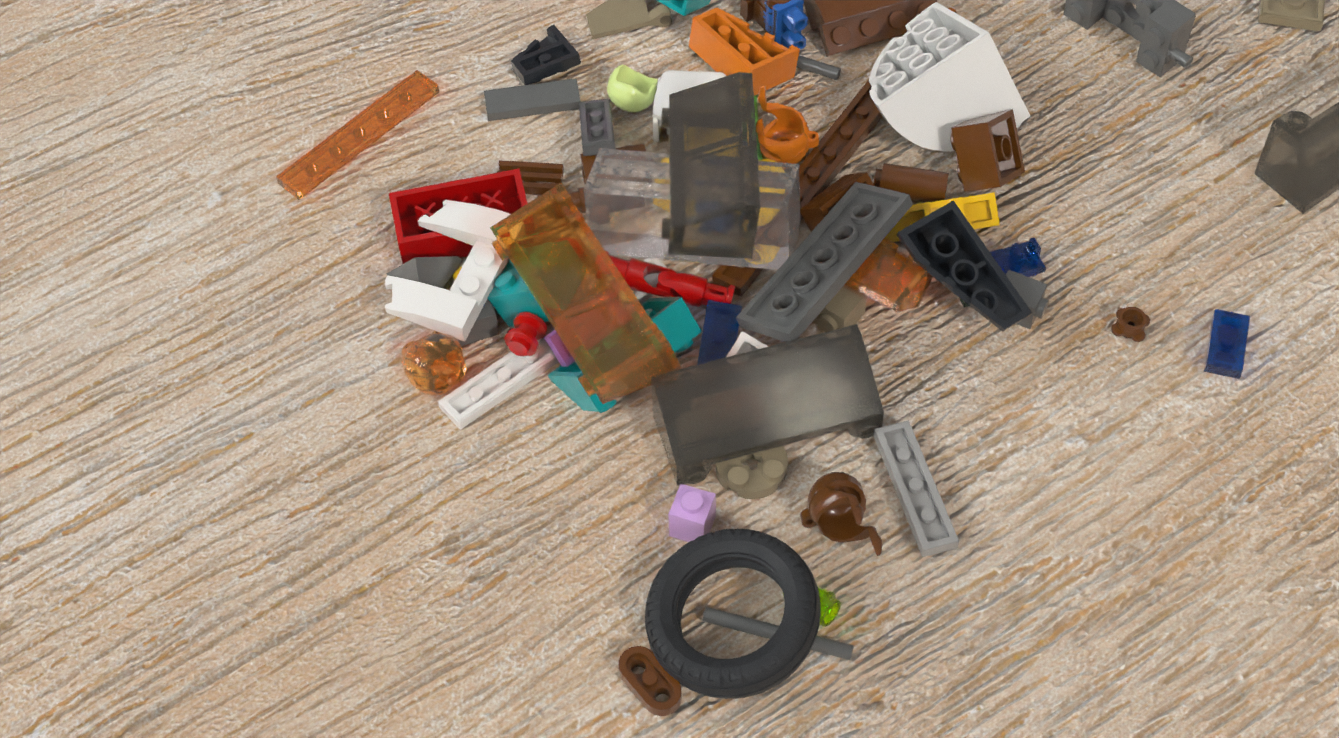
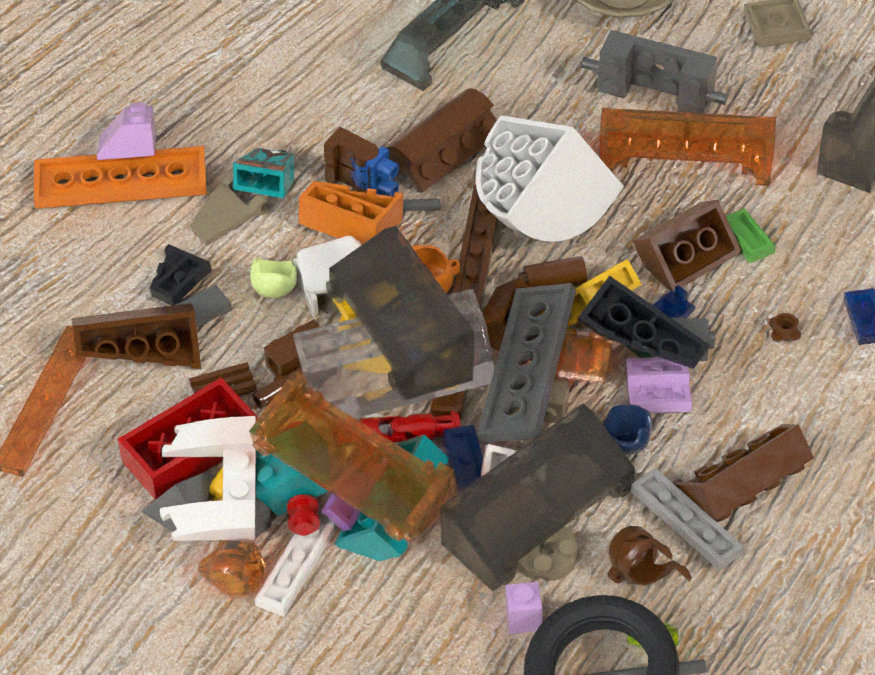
camera: 25 degrees left, 5 degrees down
(481, 104) = (142, 335): none -> reddish brown wedge
(596, 126) = (262, 319): dark grey tile -> none
(900, 368) = (629, 427): none -> dark blue hair
(959, 336) = (658, 385): none -> lavender slope
(987, 151) = (604, 227): reddish brown slope -> none
(1005, 463) = (748, 472): none -> reddish brown wedge
(1071, 201) = (688, 245): none -> reddish brown slope
(1122, 86) = (688, 138): none -> clear orange windscreen
(1142, 213) = (750, 236): none -> bright green tile

